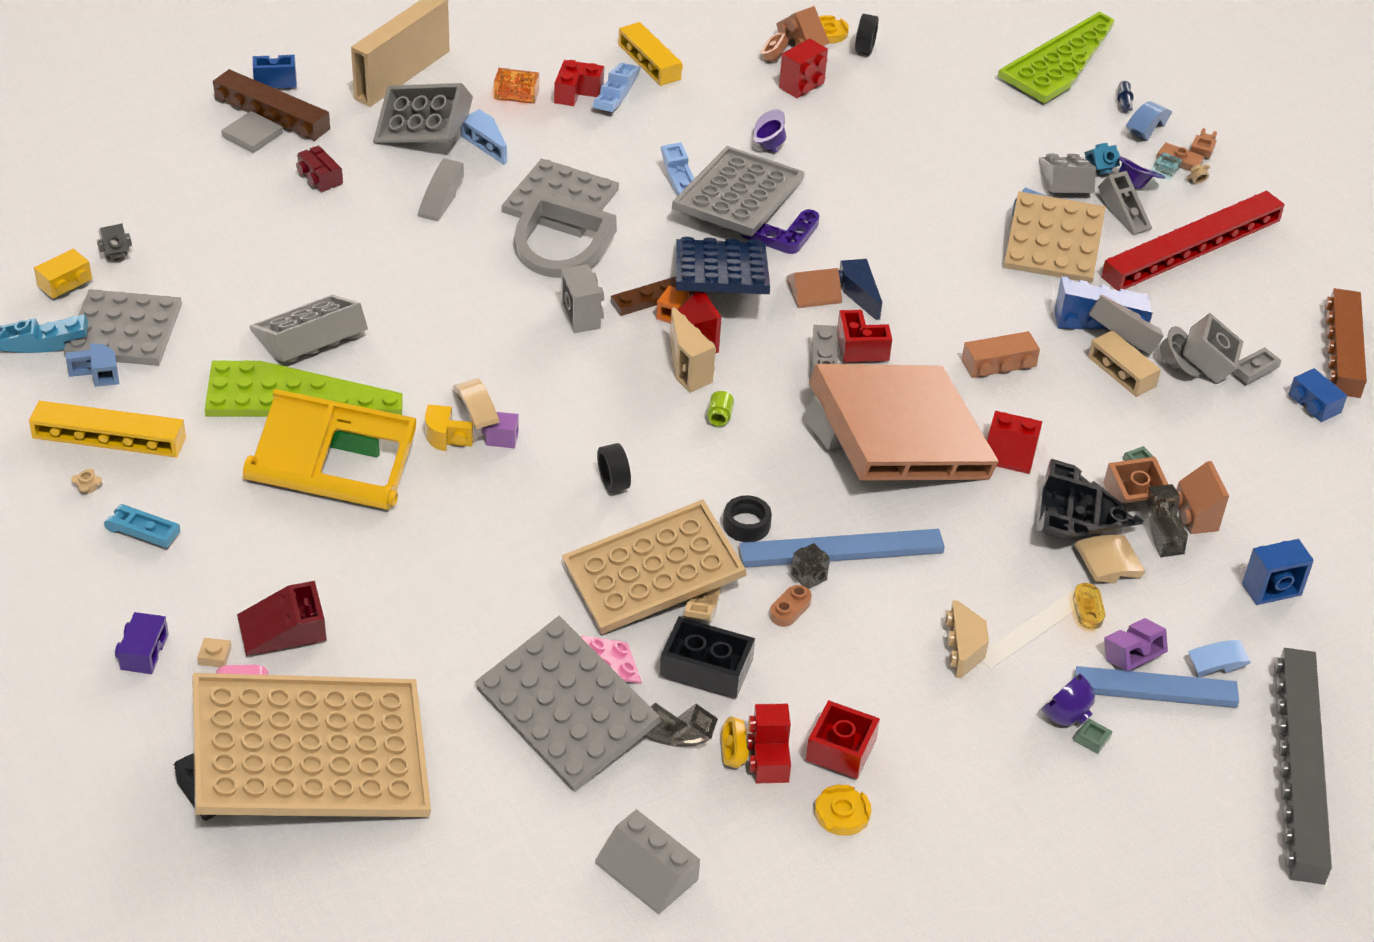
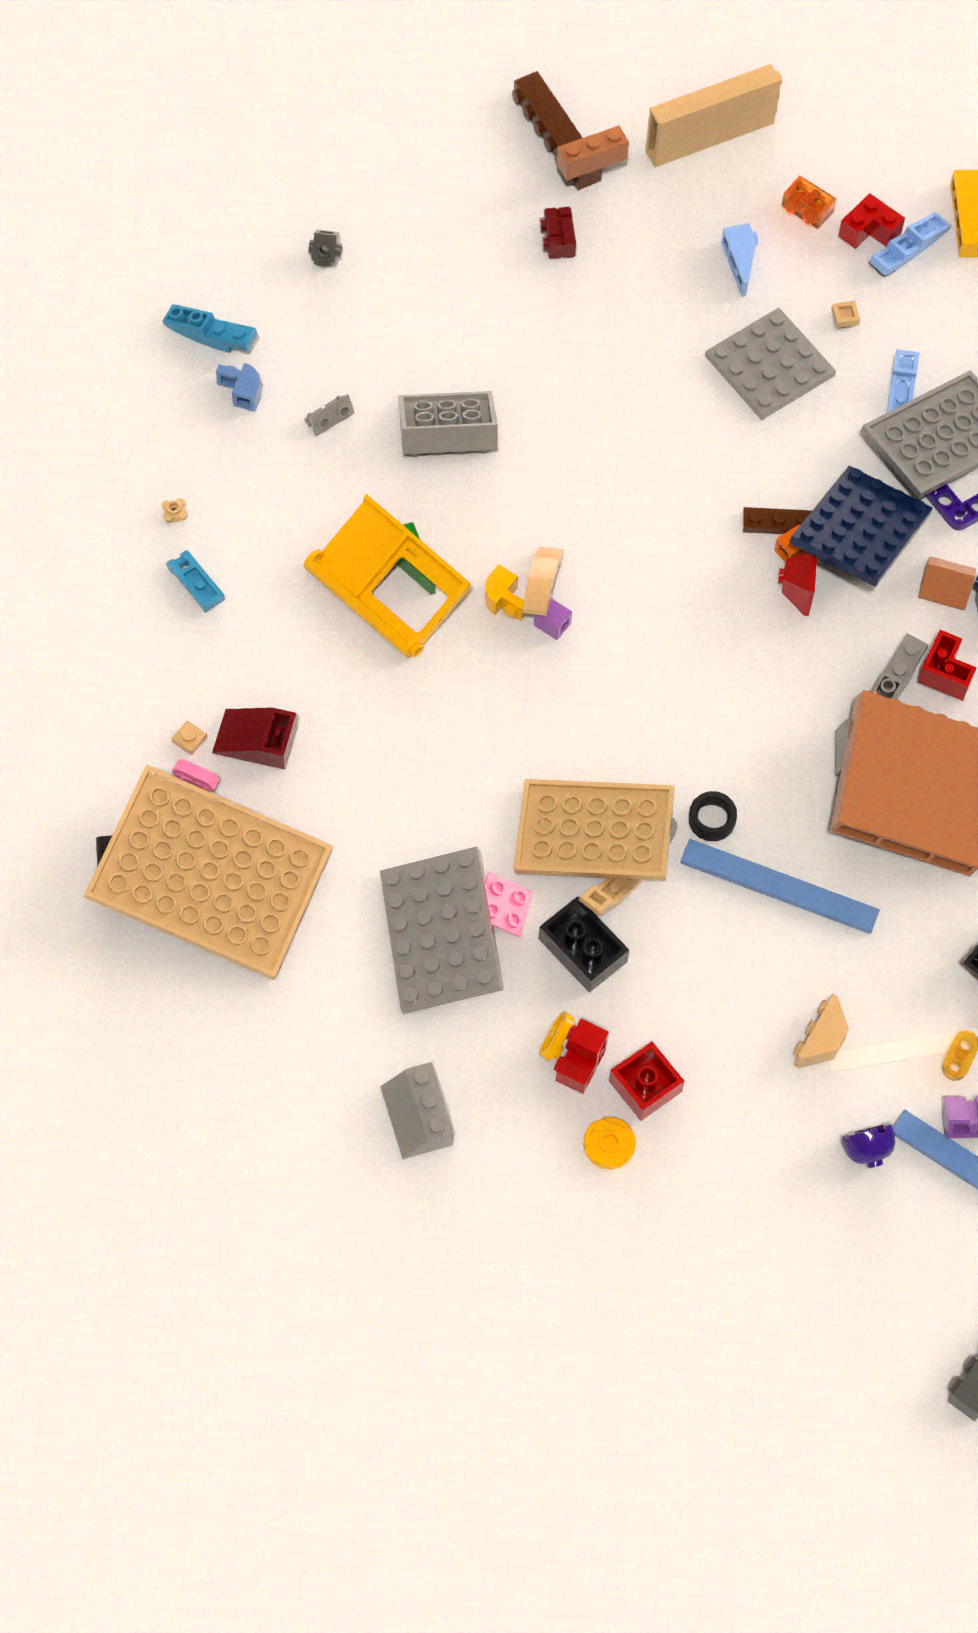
camera: 30 degrees right, 20 degrees up
(63, 273) = (263, 266): yellow brick -> none
(107, 428) = (217, 462): yellow brick -> none
(129, 324) = (291, 349): light grey plate -> none
(142, 642) = (135, 702): dark purple brick -> none
(194, 358) = (332, 414): none -> light grey hinge
(248, 389) = (364, 465): lime wing -> none
(252, 131) = (523, 155): light grey tile -> none
(275, 72) = (579, 91): blue brick -> none
(316, 100) = (592, 152): none -> nougat brick
(422, 113) = (688, 209): light grey slope -> none
(441, 189) = (658, 308): light grey slope -> none
(569, 212) = (736, 372): light grey window -> none
(581, 298) = (708, 503): light grey brick -> none
(599, 145) = (845, 314): none -> tan plate
(614, 467) = (622, 709): black tyre -> none
(687, 730) = (522, 1002): clear smoke brick -> none
(691, 353) = (769, 618): tan slope -> none
(720, 408) = (764, 684): lime brick -> none
(794, 601) = (696, 923): nougat plate -> none
(810, 566) = (734, 894): clear smoke brick -> none
(1093, 736) = (873, 1183): sand green tile -> none

